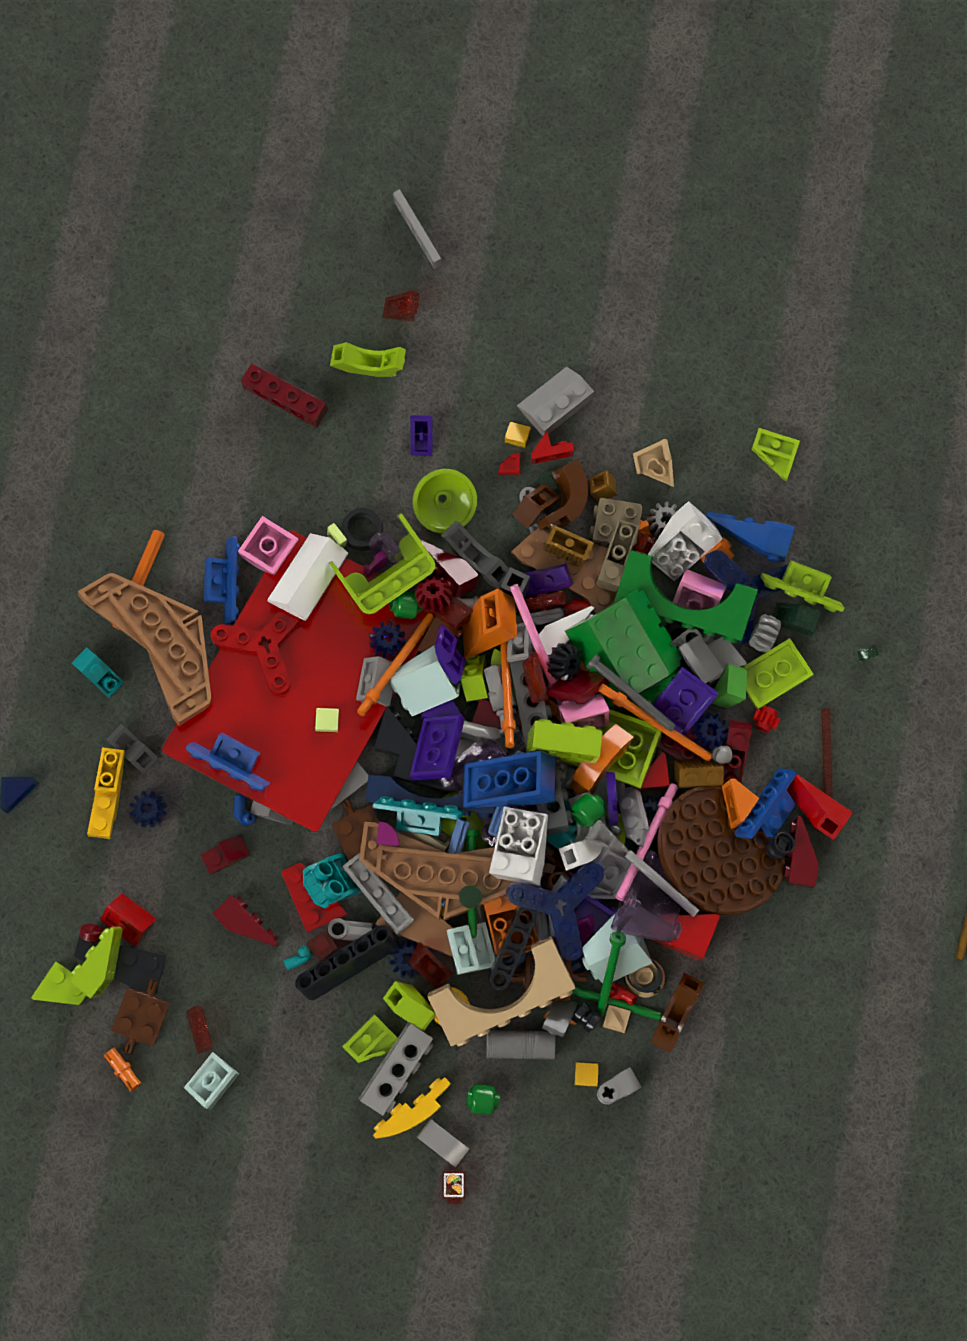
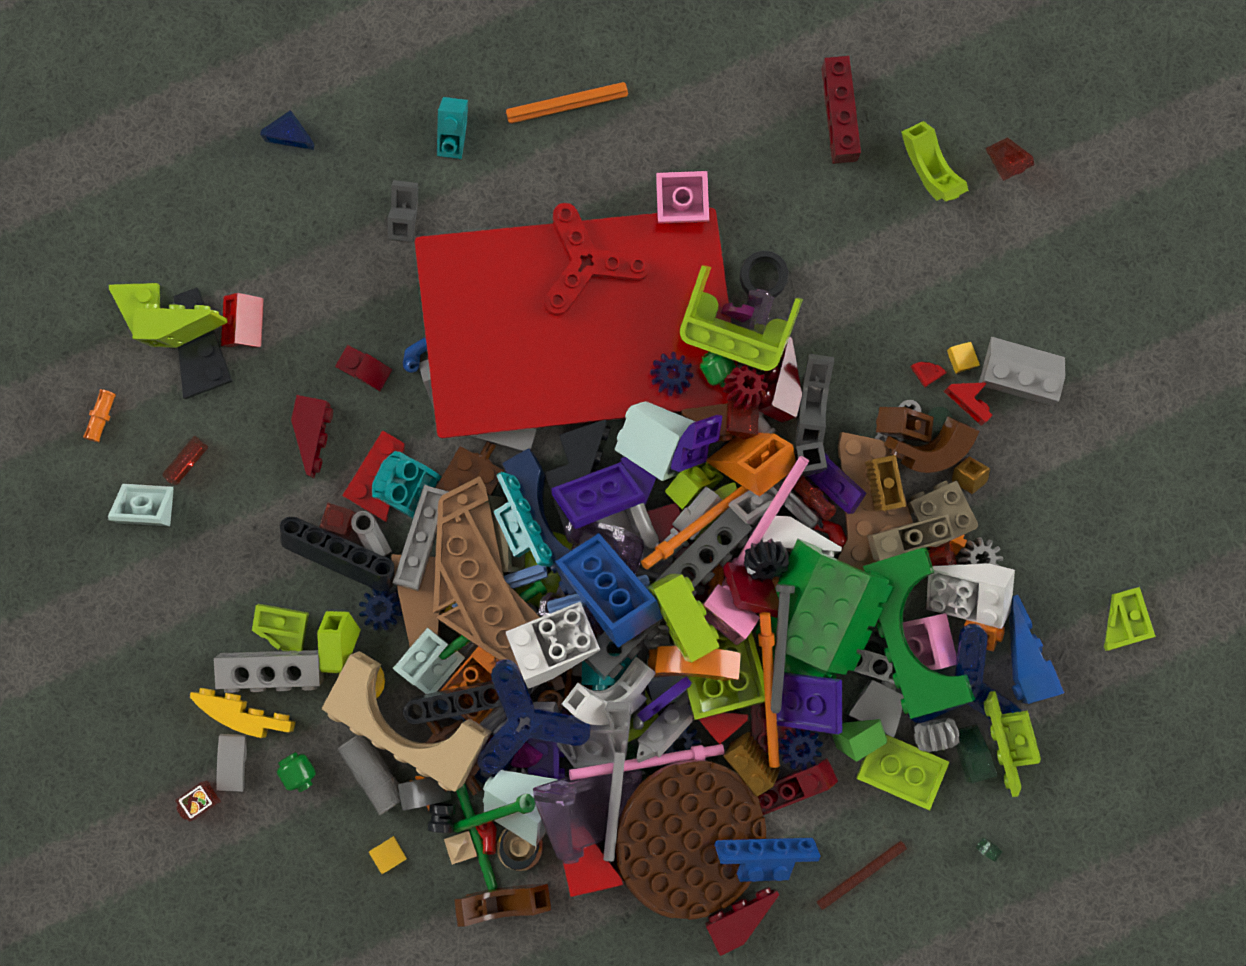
camera: 50 degrees right, 5 degrees up
(90, 932) = (205, 295): dark red tile -> none
(107, 793) = (344, 218): yellow slope -> none
(140, 1016) = (158, 397): reddish brown plate -> none
(145, 817) = (365, 260): clear blue gear -> none
(160, 627) = (532, 150): medium nougat wing -> none
(221, 580) = (620, 178): blue bracket -> none
(231, 757) = (451, 309): blue bracket -> none
(299, 959) = (314, 507): teal arm -> none
(308, 576) = (679, 256): white slope -> none
(327, 720) = (553, 371): yellowish green tile -> none
(336, 535) = (738, 256): yellowish green tile -> none
(372, 671) = (623, 391): light grey panel -> none
(373, 695) = (604, 399): orange bar -> none
(387, 835) = (479, 507): magenta tile -> none
(417, 229) = (1097, 118): light grey tile -> none
(421, 435) = (895, 266): dark purple slope -> none
(429, 966) = (387, 634): clear red slope -> none
(458, 504) = (853, 349): lime dish -> none
(470, 897) = (473, 629): clear green tile -> none
(534, 678) = (729, 543): clear red slope -> none
(588, 810) = (634, 685): green head -> none
(622, 1086) = (400, 895): light grey piece -> none
(655, 462) = (1031, 509): tan slope -> none
(700, 659) = (864, 690): light grey panel -> none
(722, 754) = (785, 776): light grey hinge -> none
(738, 801) = (749, 824): orange slope -> none
(766, 719) = (852, 793): red gear -> none
(781, 841) = (740, 898): black wheel -> none
(818, 807) = (800, 907): red slope -> none

